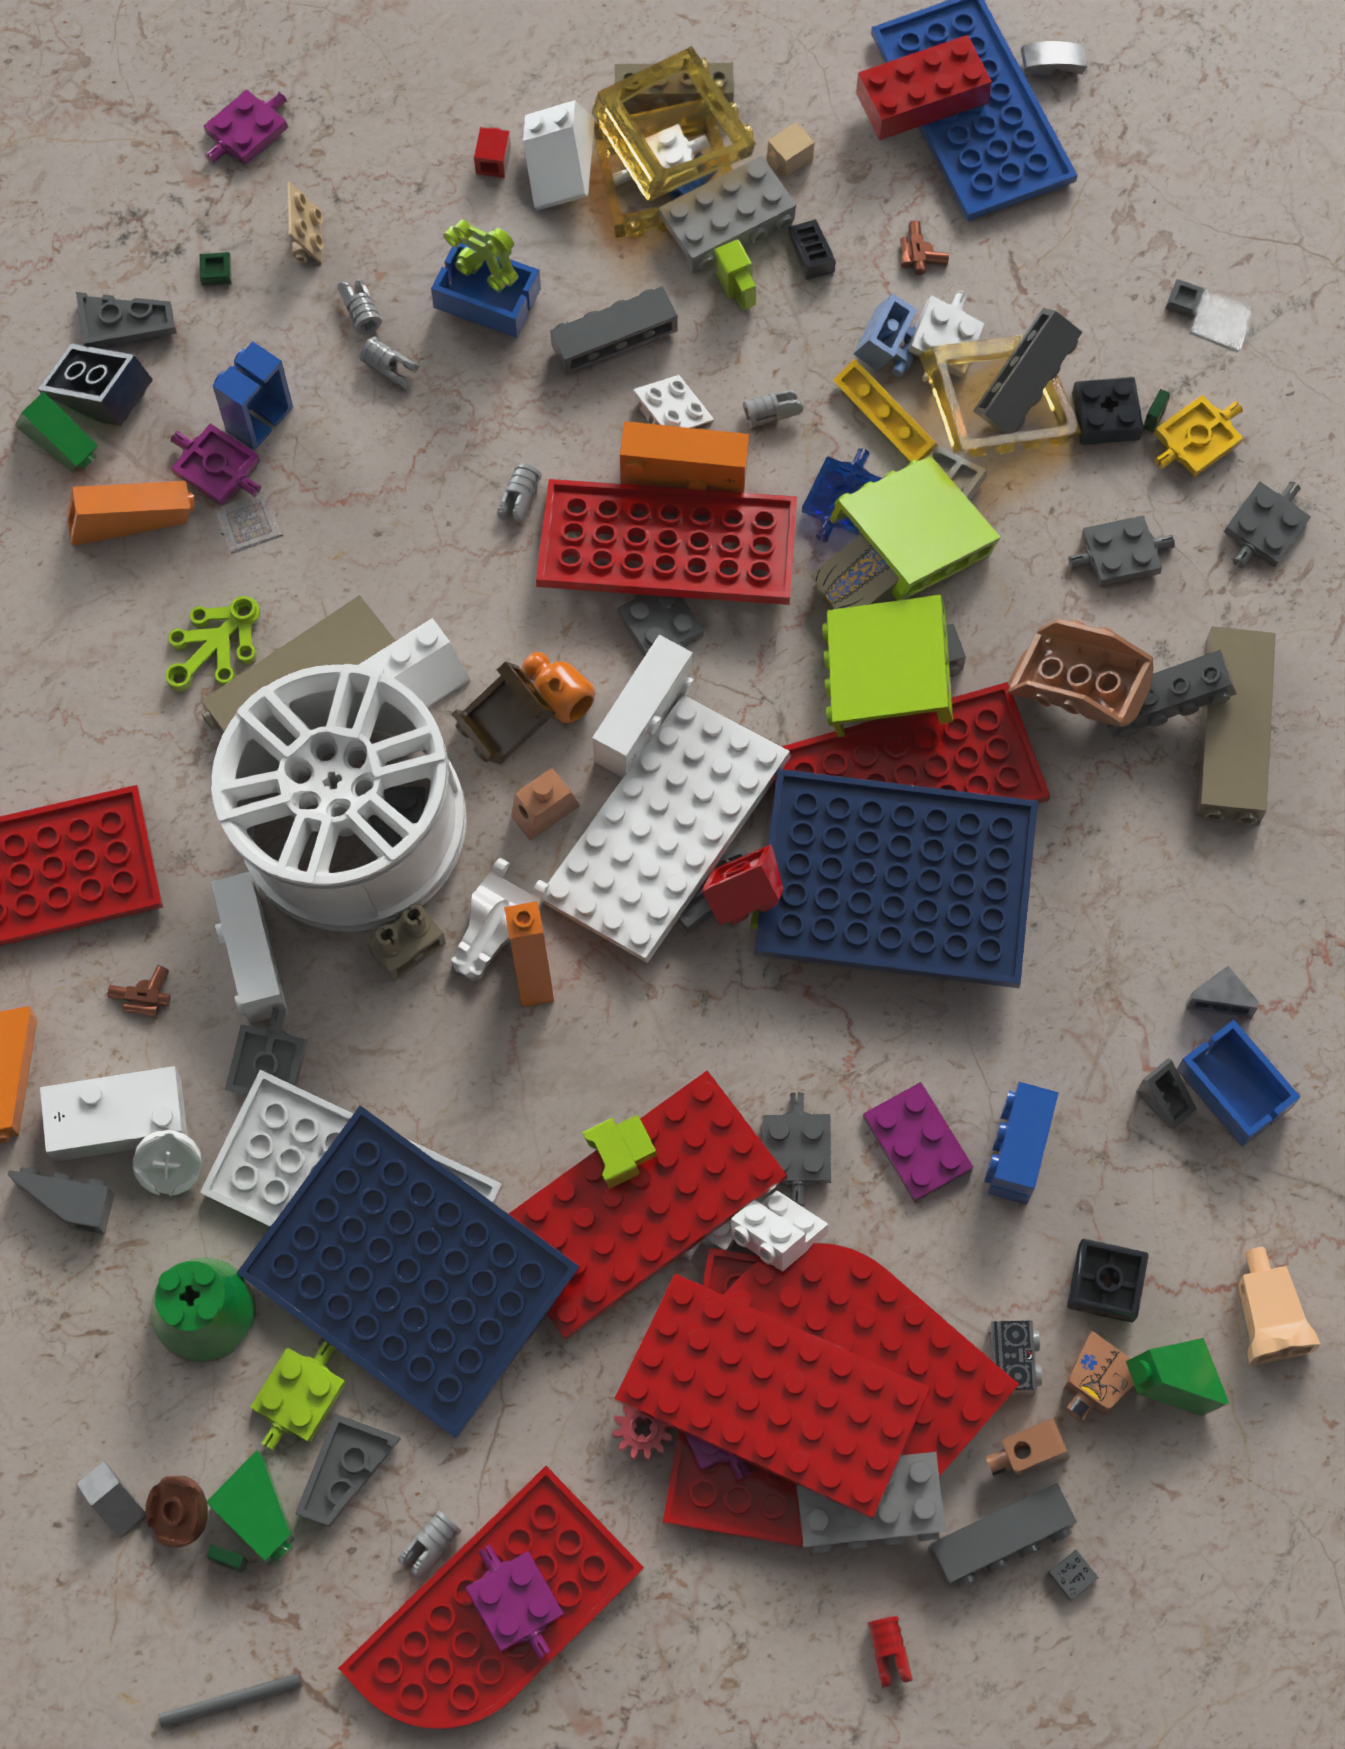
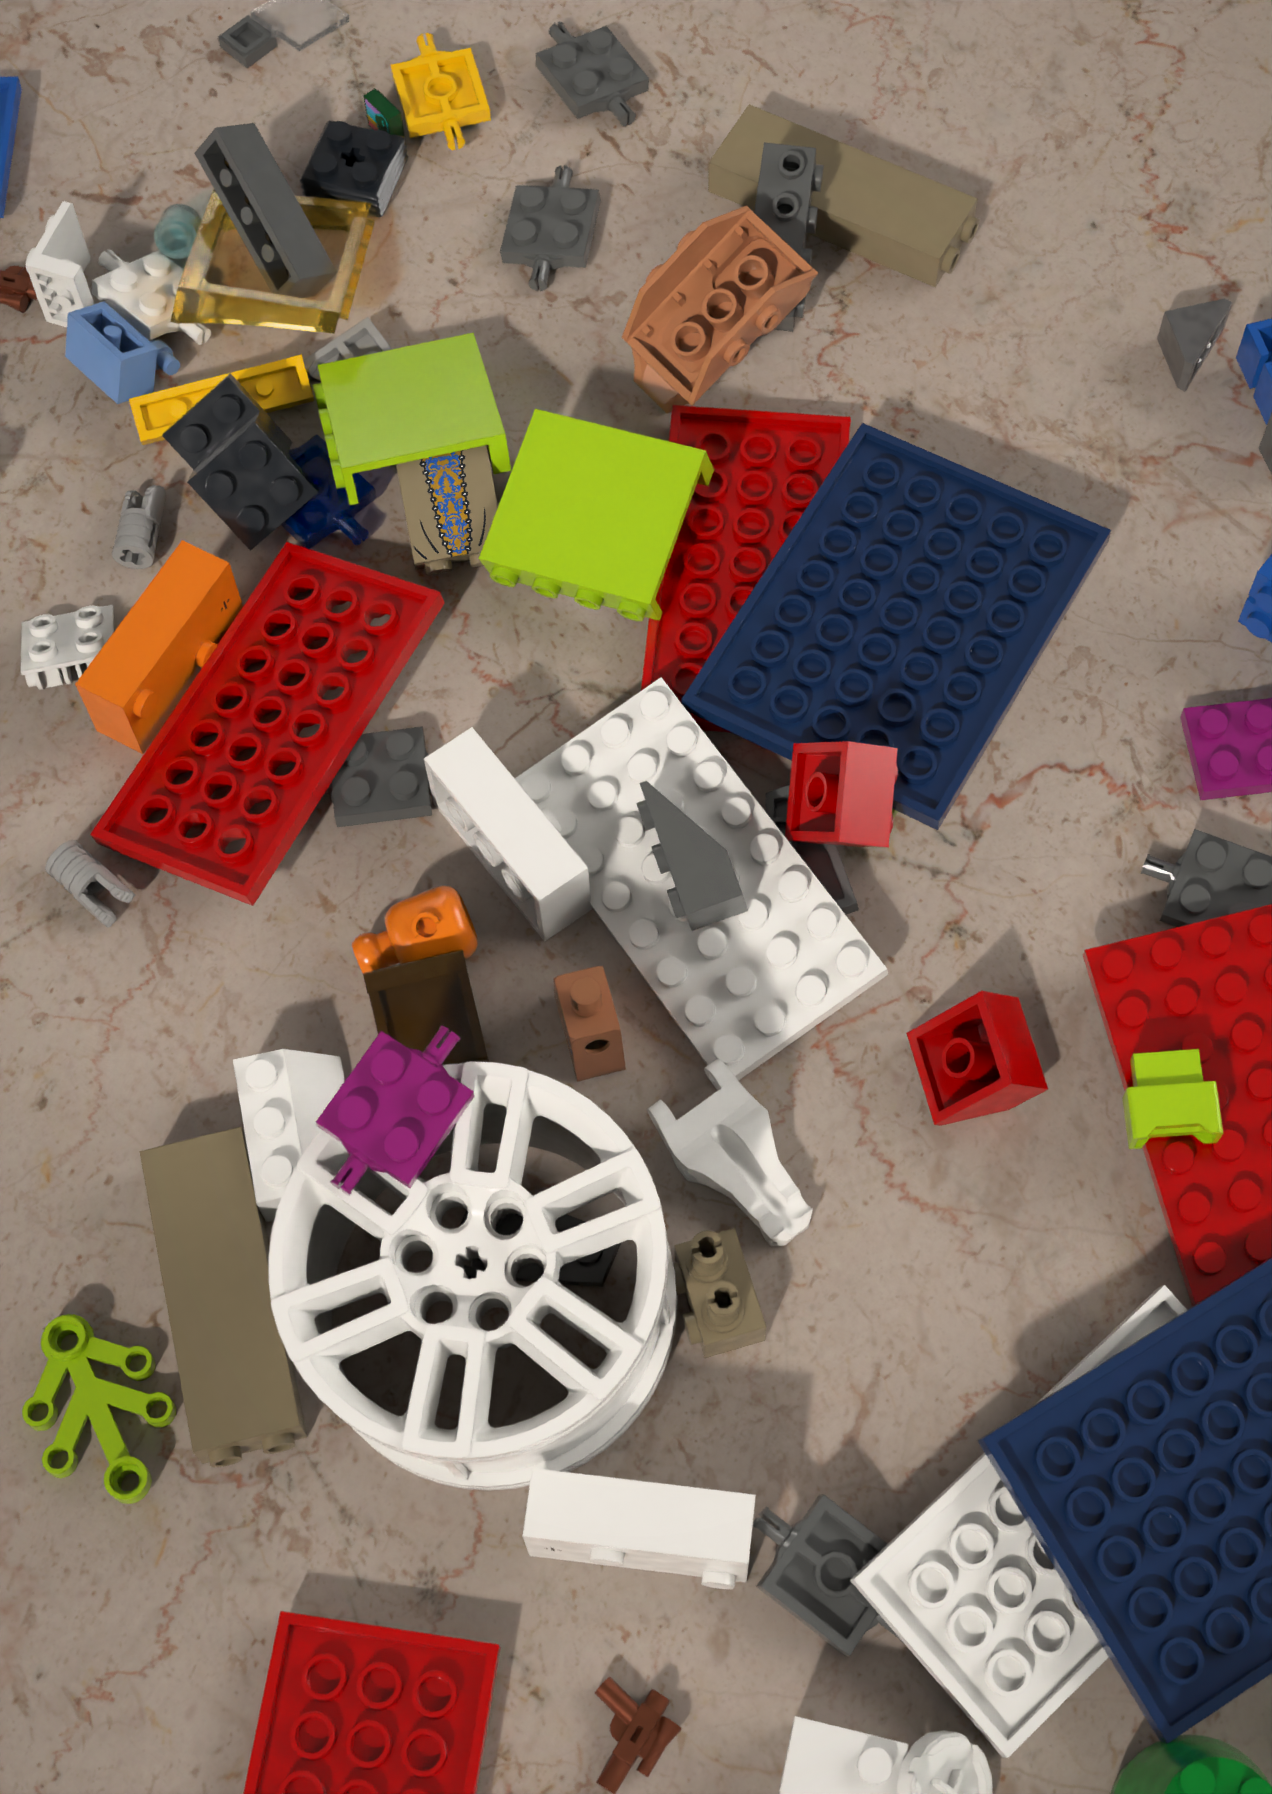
camera: 65 degrees left, 5 degrees down
(391, 698) = (395, 1109): none -> magenta plate
(529, 953) = (827, 1111): orange slope -> none
(615, 1036) = (977, 1058): none -> red slope
(660, 820) = (699, 865): none -> dark grey slope
(835, 440) = (240, 462): none -> black bracket
(933, 270) = (59, 266): none -> white bracket
(998, 325) = (177, 230): none -> clear light blue brick

